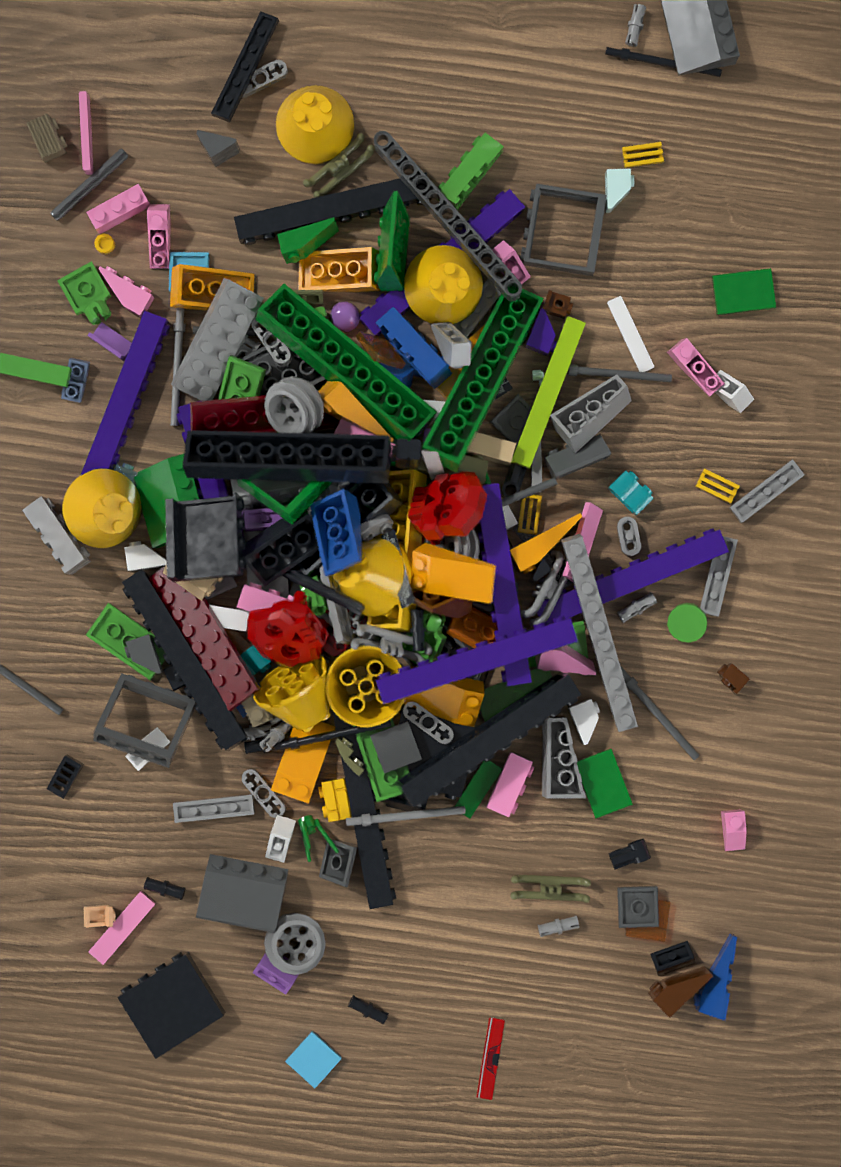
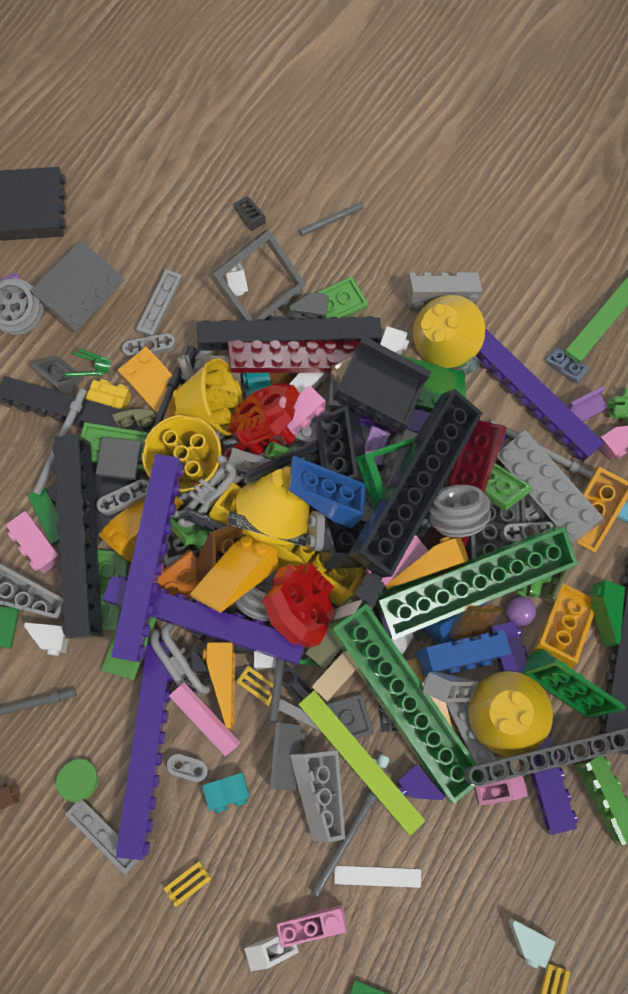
camera: 115 degrees right, 15 degrees down
(99, 916) = (129, 185): light nougat bracket -> none
(122, 927) = (111, 199): bright pink tile -> none
(164, 888) = (120, 240): black pin -> none
(280, 838) = (105, 340): white slope -> none
(552, 309) = (444, 808): reddish brown brick -> none
(565, 660) = (102, 650): bright pink slope -> none
(570, 194) = (539, 838): dark grey window -> none
(599, 632) = (114, 688): light grey brick -> none
(637, 607) = (119, 740): light grey pin -> none
(766, 491) = (155, 933): light grey plate -> none

